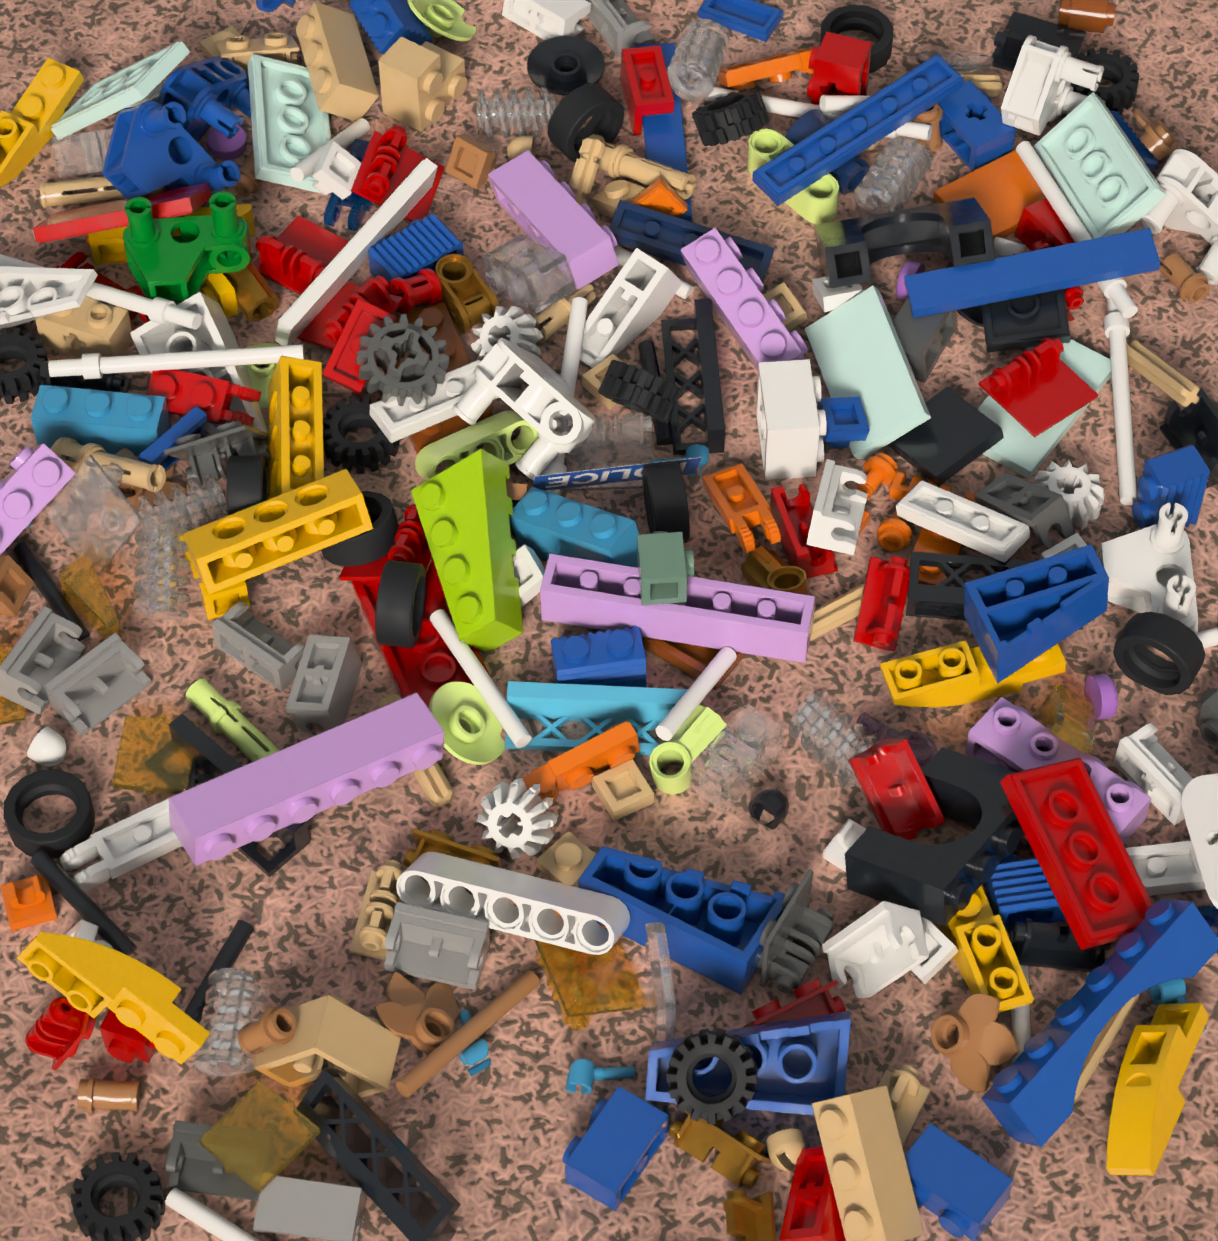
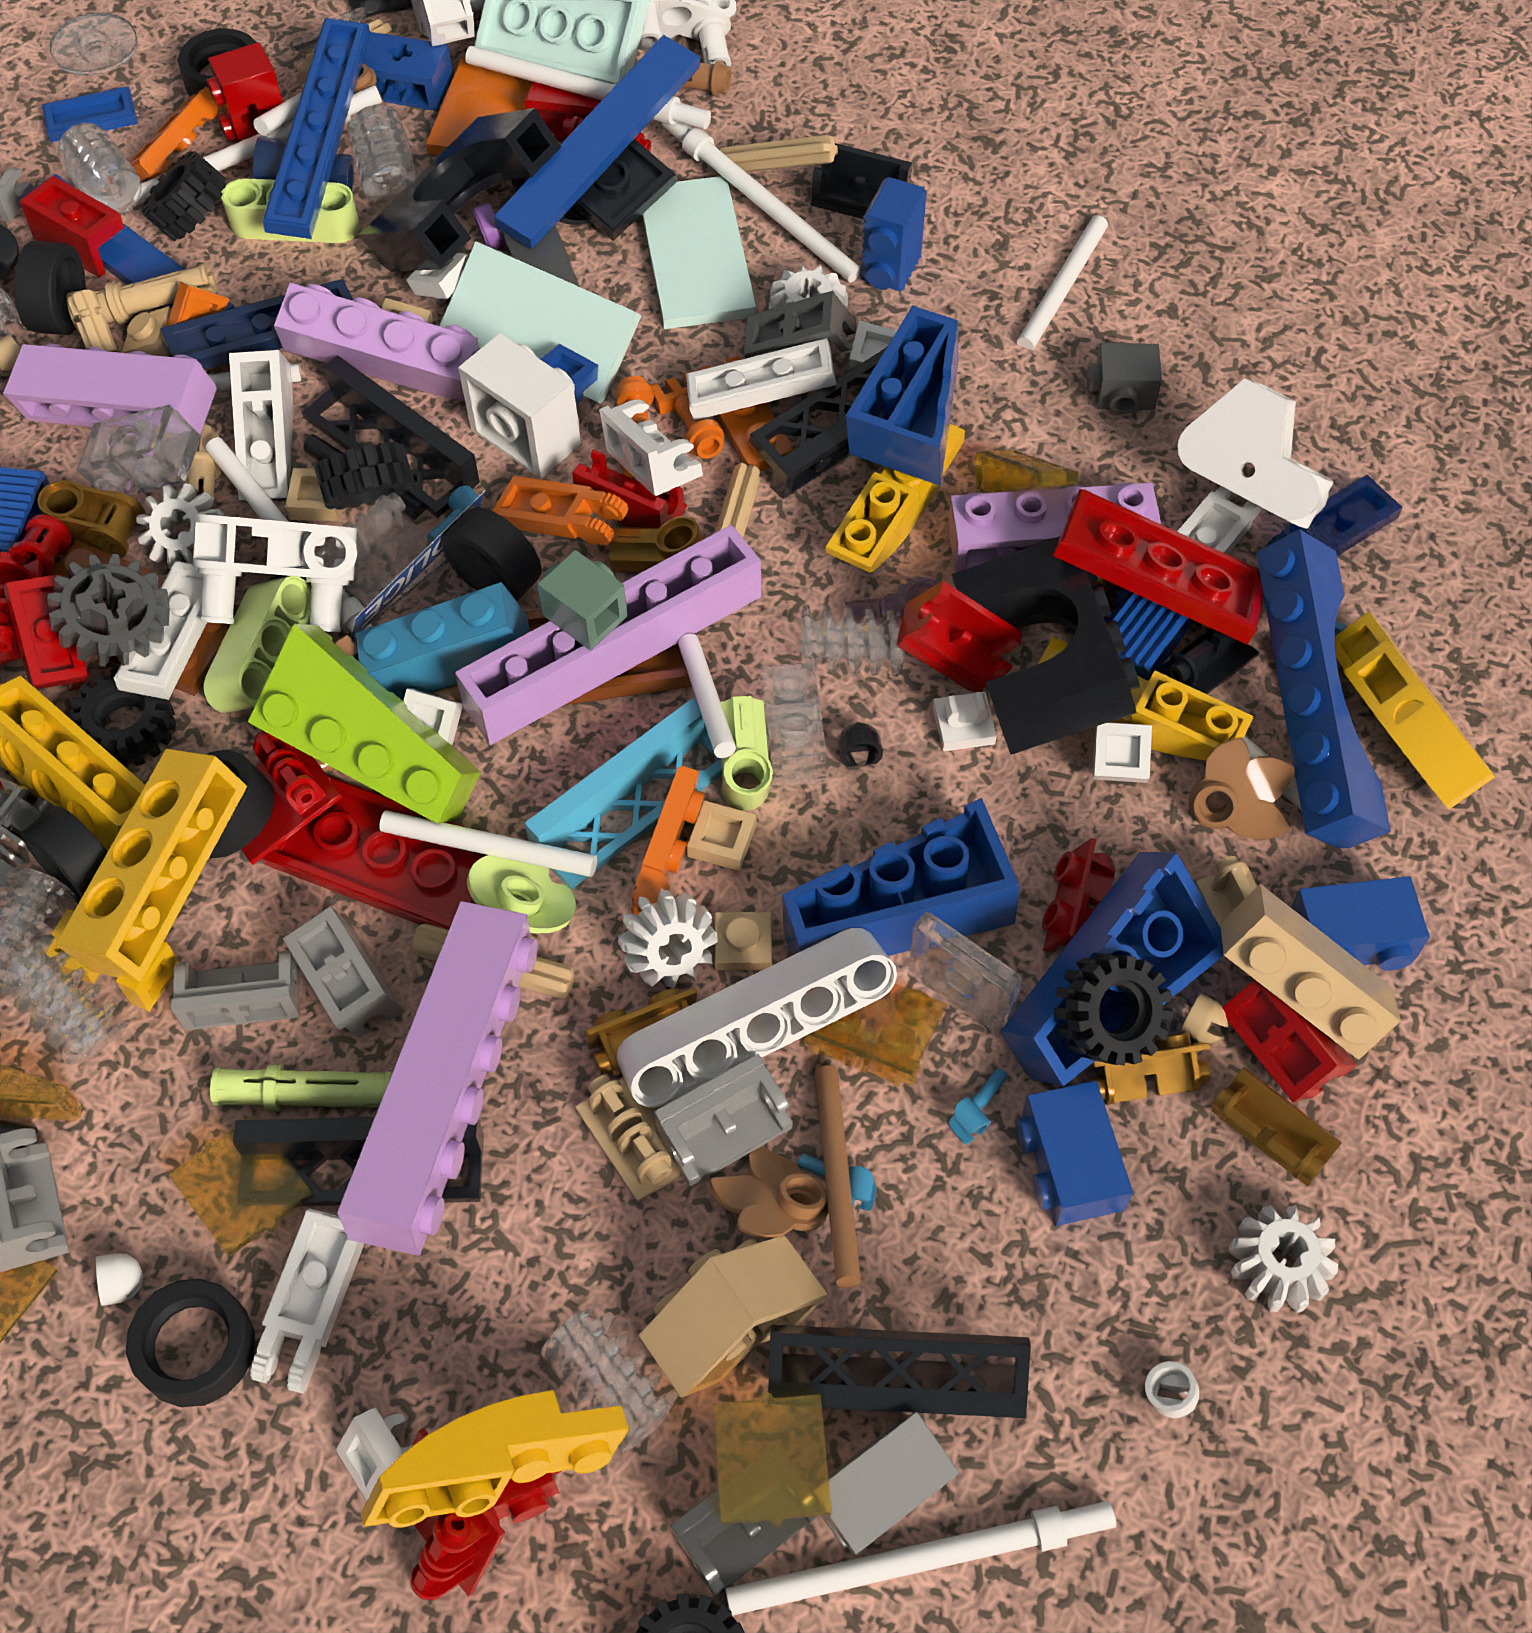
camera: 45 degrees left, 5 degrees up
(28, 902) = (262, 1450): orange tile -> none
(82, 902) = (324, 1399): black bar -> none
(97, 684) = (105, 1170): light grey hinge -> none
(108, 1094) = (560, 1564): medium nougat pin -> none
(225, 959) = (530, 1331): black bar -> none
(273, 1028) = (682, 1339): medium nougat pin -> none
(400, 604) = (350, 833): black tyre -> none
(600, 658) = (581, 739): blue brick -> none
(793, 938) = (1018, 832): dark grey hinge -> none
(877, 948) = (1097, 782): white hinge -> none
(882, 603) = (768, 506): red hinge -> none
(949, 439) = (670, 327): black tile -> none
(1038, 387) = (692, 234): red hinge -> none
(1102, 694) = (1012, 433): medium lavender tile -> none
(1153, 770) = (1115, 465): white hinge -> none
(1154, 569) = (988, 327): white piece -> none
(1167, 636) = (1015, 347): black tyre -> none

